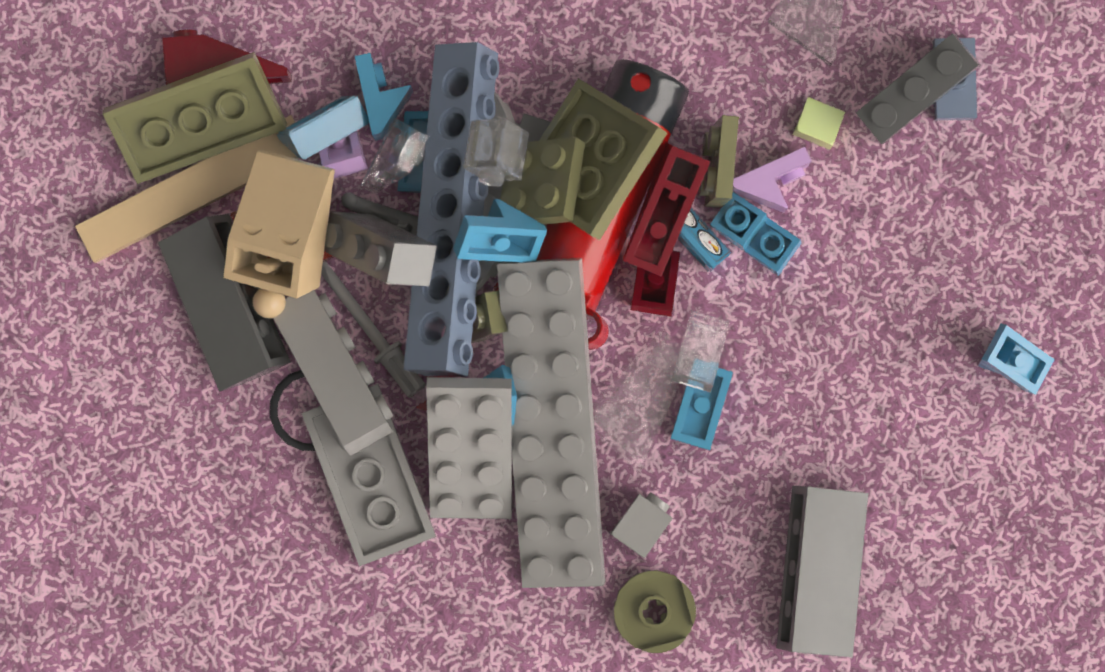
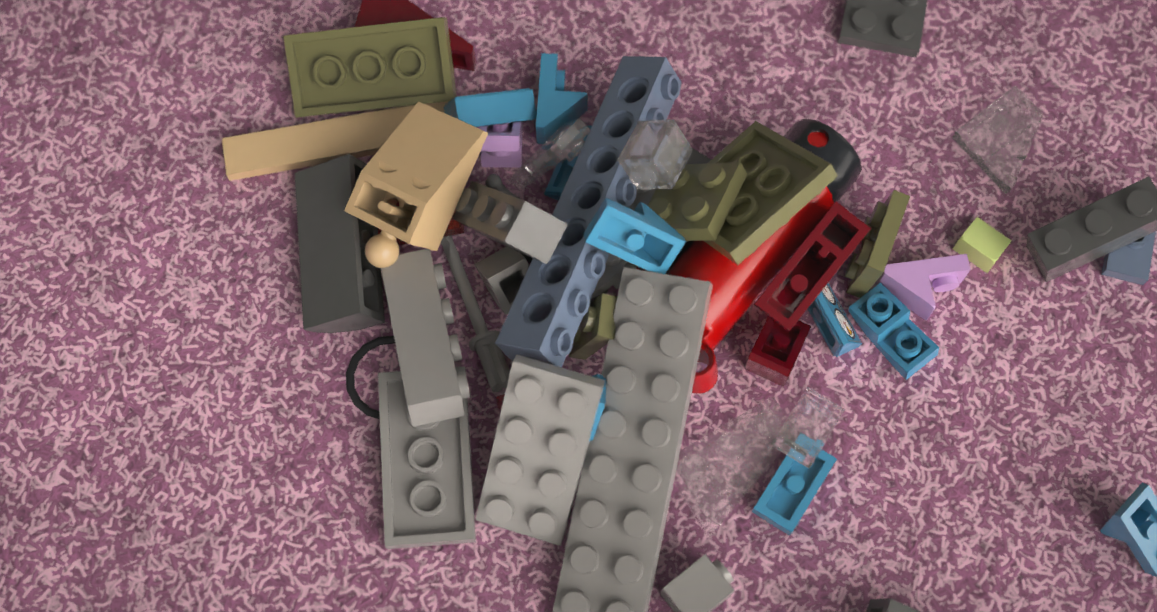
camera: 15 degrees right, 15 degrees down
(390, 298) = (503, 276): none -> light grey brick

